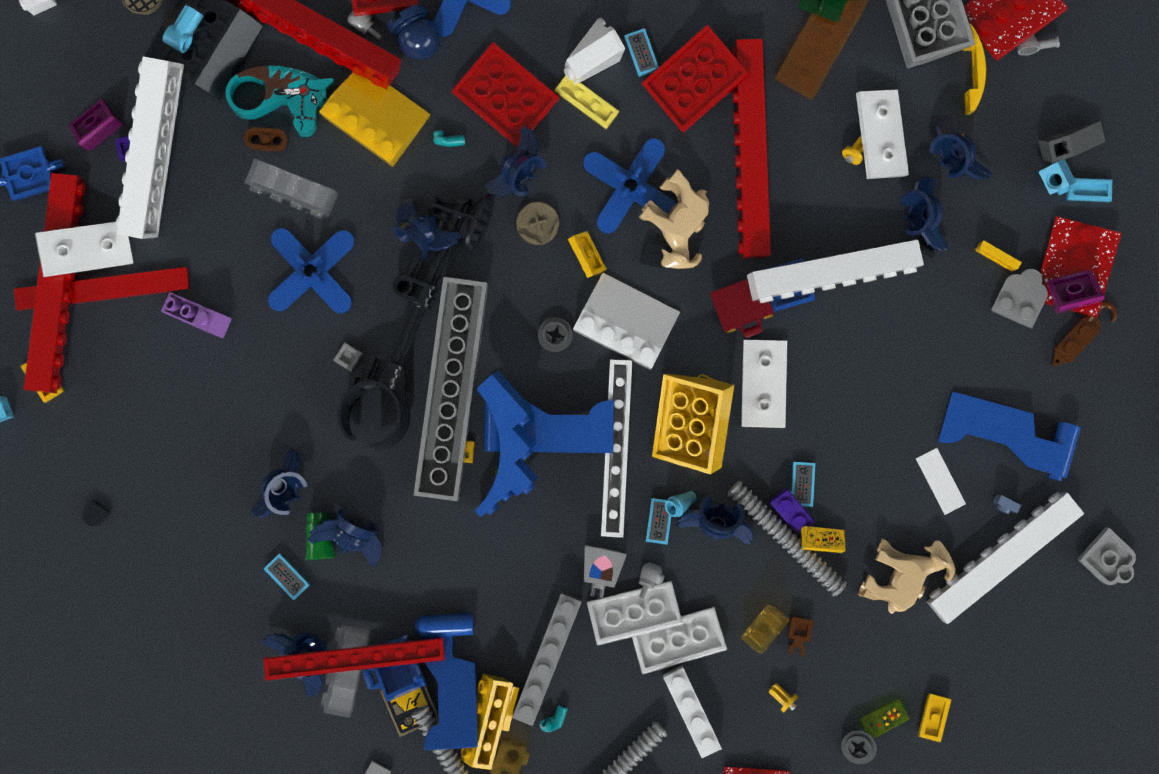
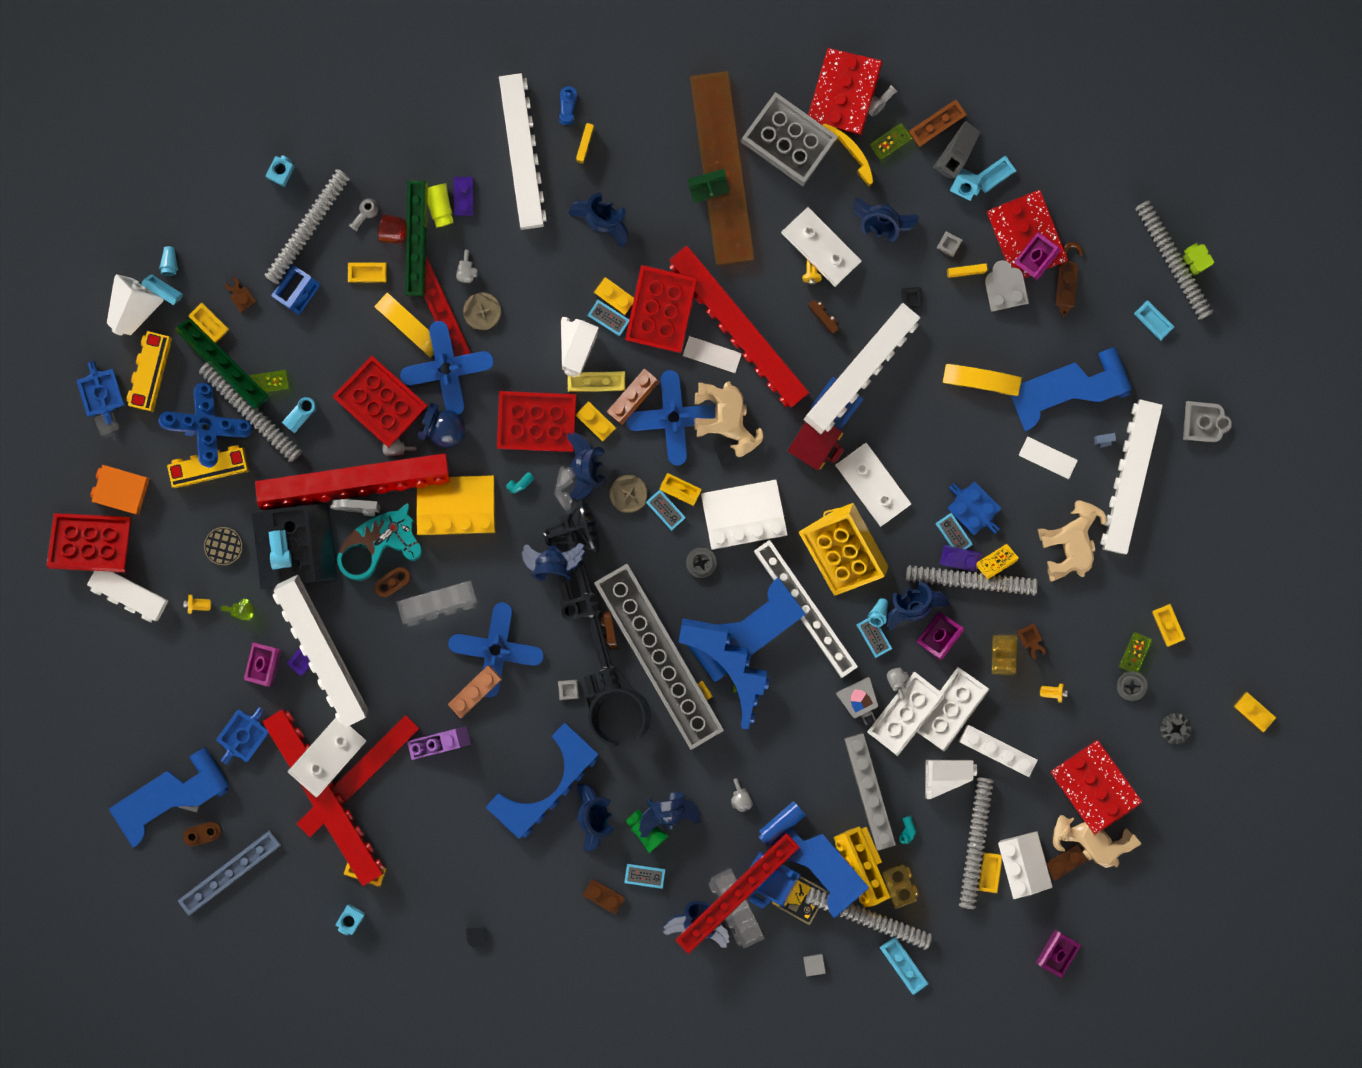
camera: 45 degrees left, 0 degrees up
(72, 21) = (197, 604): none -> yellow piece
(112, 62) = (242, 611): none -> clear neon green piece
(216, 436) = (521, 816): none -> blue arch
(236, 566) = (603, 896): none -> reddish brown plate
(263, 293) = (475, 691): none -> nougat plate
(295, 55) = (368, 508): none -> light grey plate
(426, 575) = (741, 798): none -> light grey piece
(429, 323) = (606, 622): none -> reddish brown plate
(487, 167) = (564, 480): none -> clear slope
(558, 136) = (595, 421): none -> yellow plate
(559, 263) = (665, 510): none -> tile
(609, 139) = (633, 396): none -> plate
(628, 697) = (946, 775): none -> white slope
(661, 37) = (614, 296): none -> yellow plate
(709, 156) = (712, 354): none -> white sticker
(720, 567) = (940, 635): none -> magenta slope
(837, 208) = (819, 311): none -> reddish brown plate
(839, 475) = (974, 508): none -> blue plate
(924, 213) = (893, 280): dark blue helmet -> none
(936, 364) = (982, 379): none -> yellow slope
(999, 220) = (949, 244): none -> light grey tile
(1017, 88) = (890, 141): none -> clear neon green tile
(1072, 103) = (937, 123): none -> dark orange plate
(1132, 431) = (1154, 320): none -> medium azure tile

